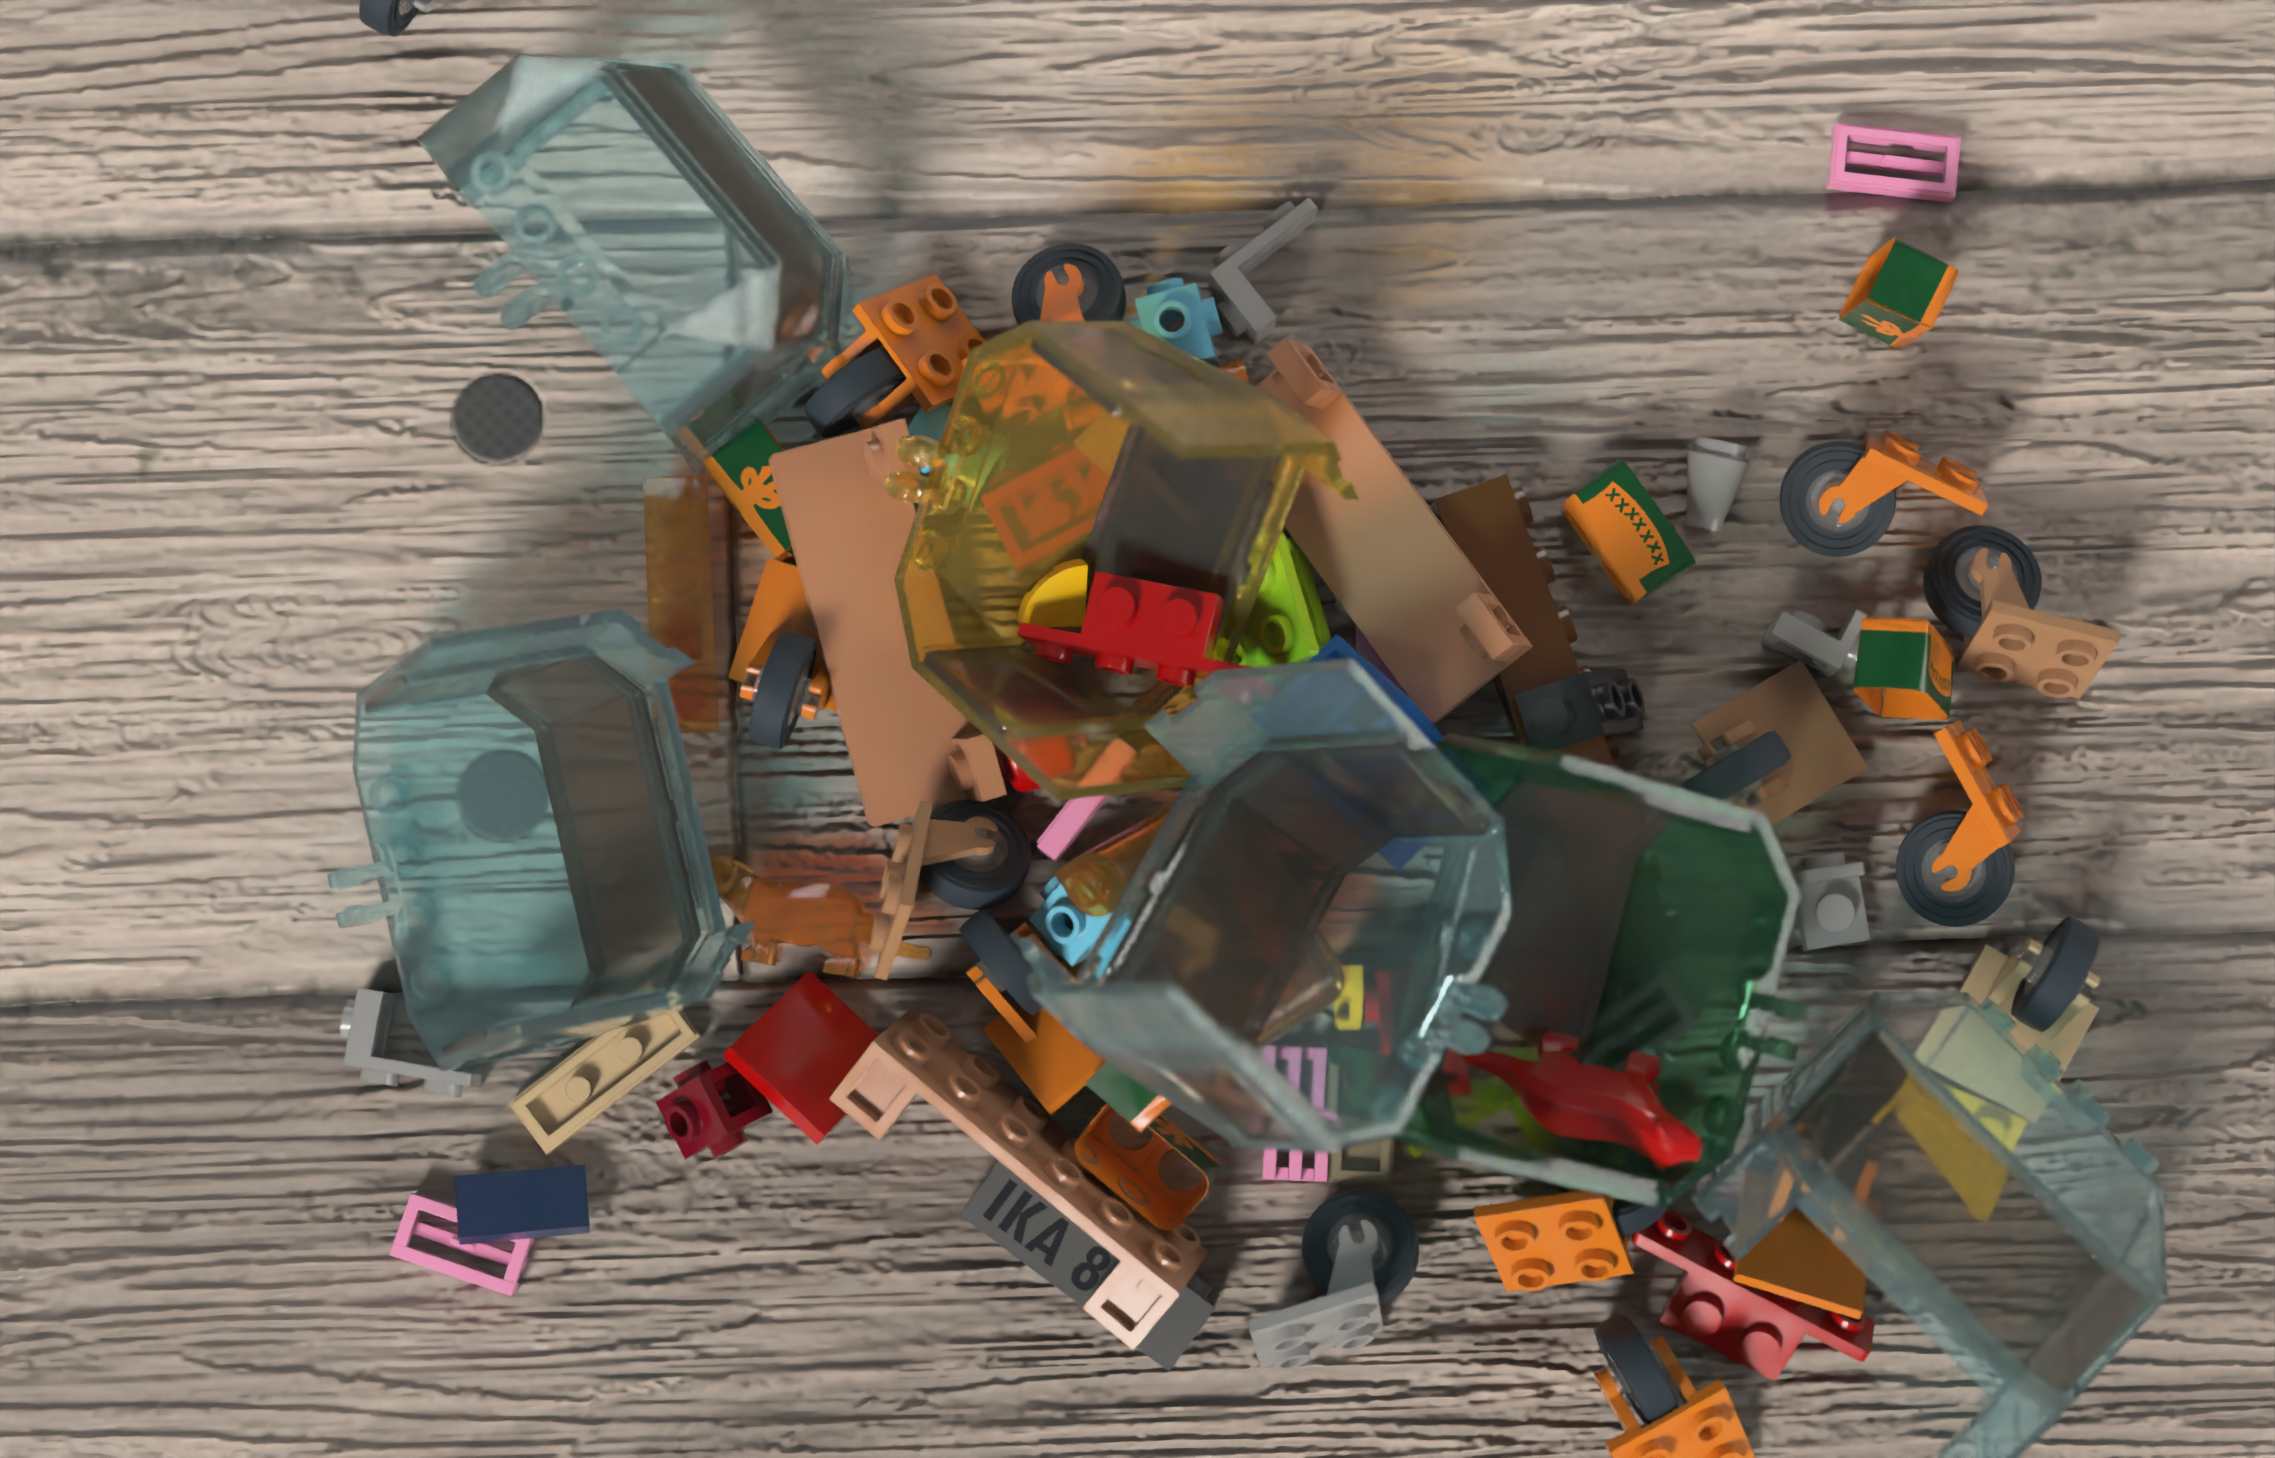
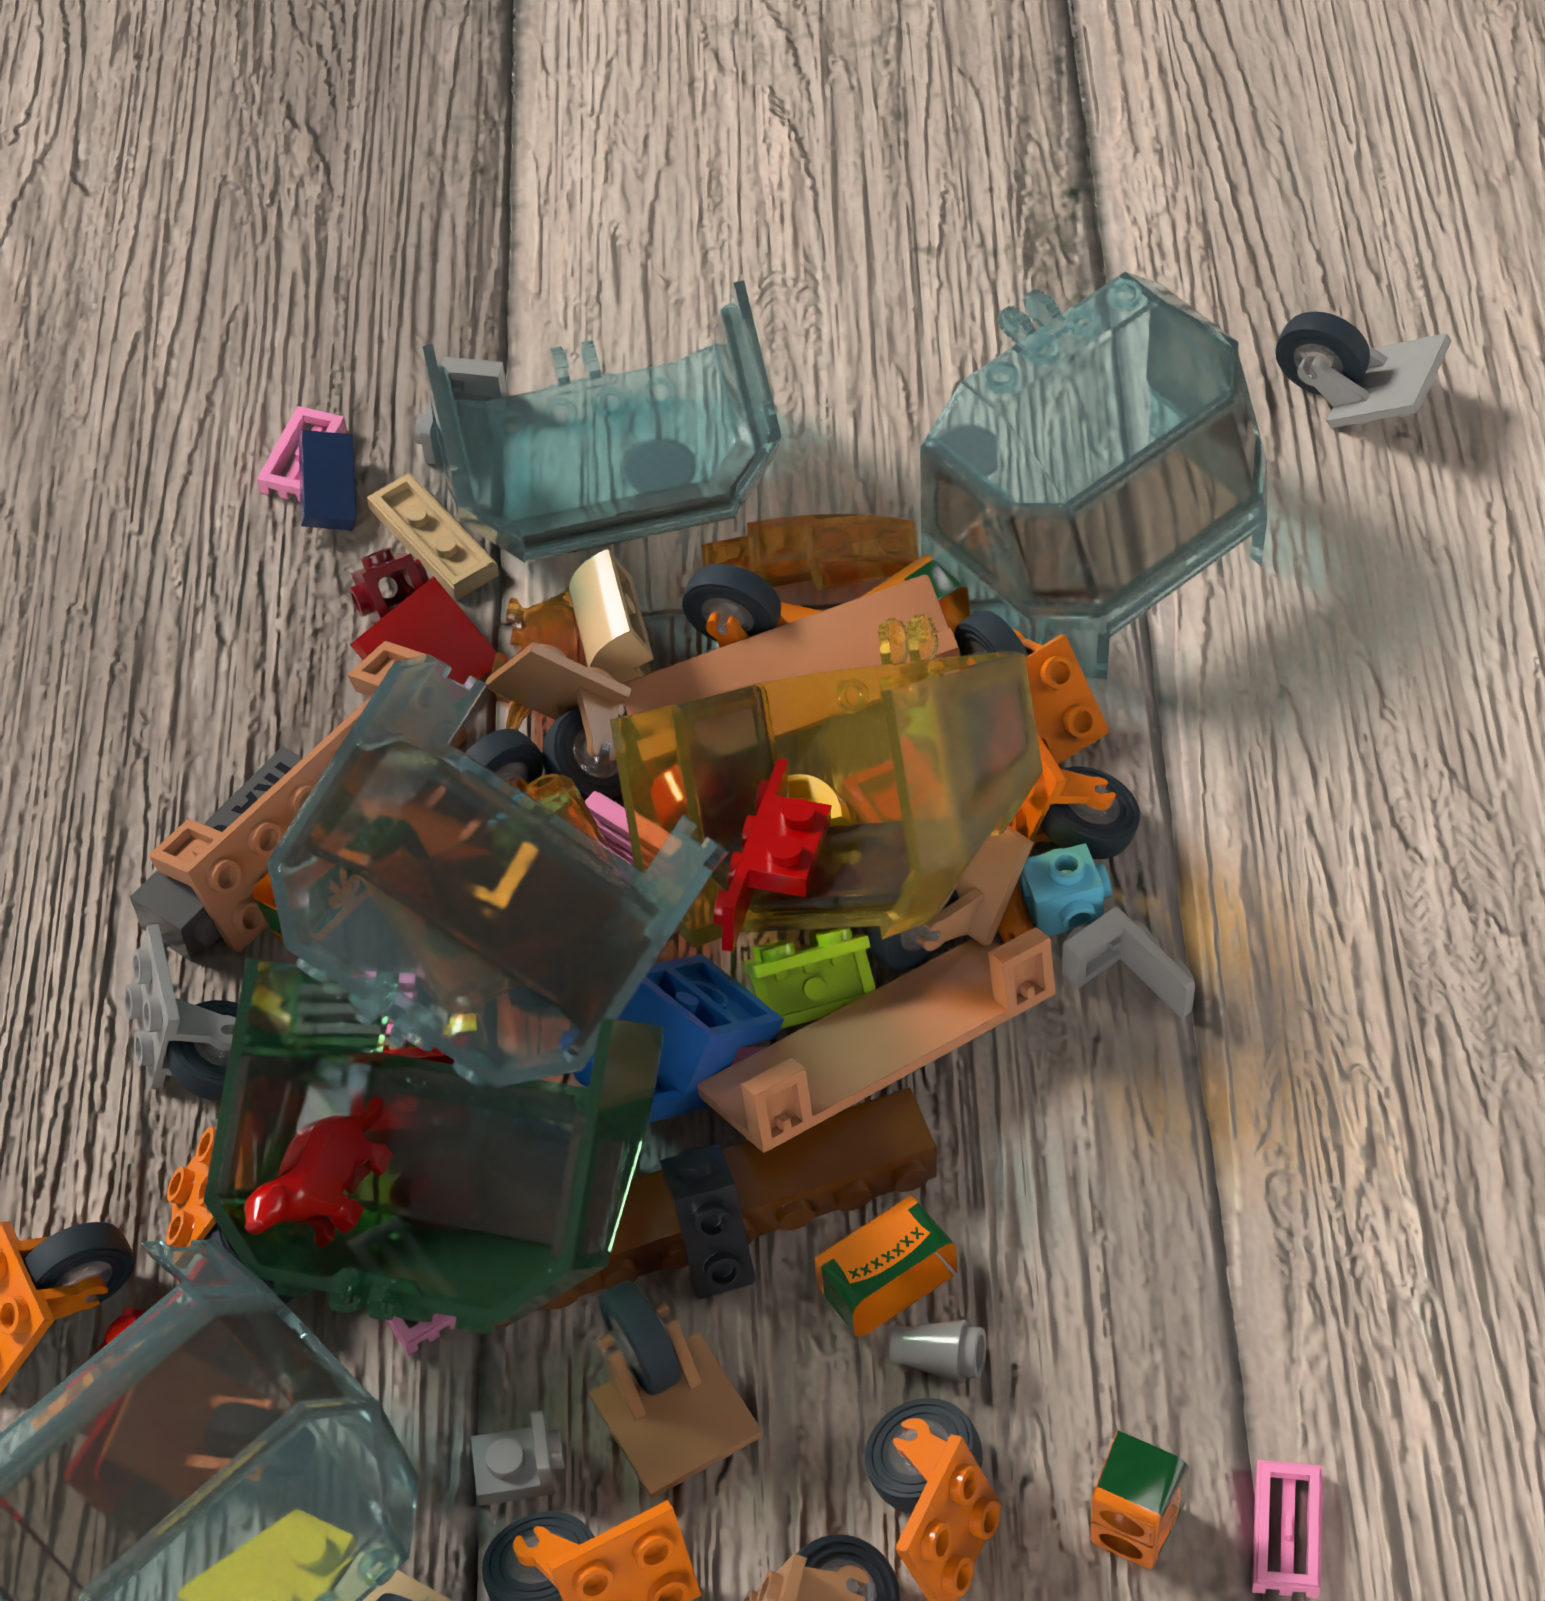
camera: 90 degrees right, 30 degrees down
(801, 833) = (610, 618): none -> tan brick
(1806, 639) = (776, 1440): light grey bracket -> none
(1907, 661) = (743, 1502): piece -> none

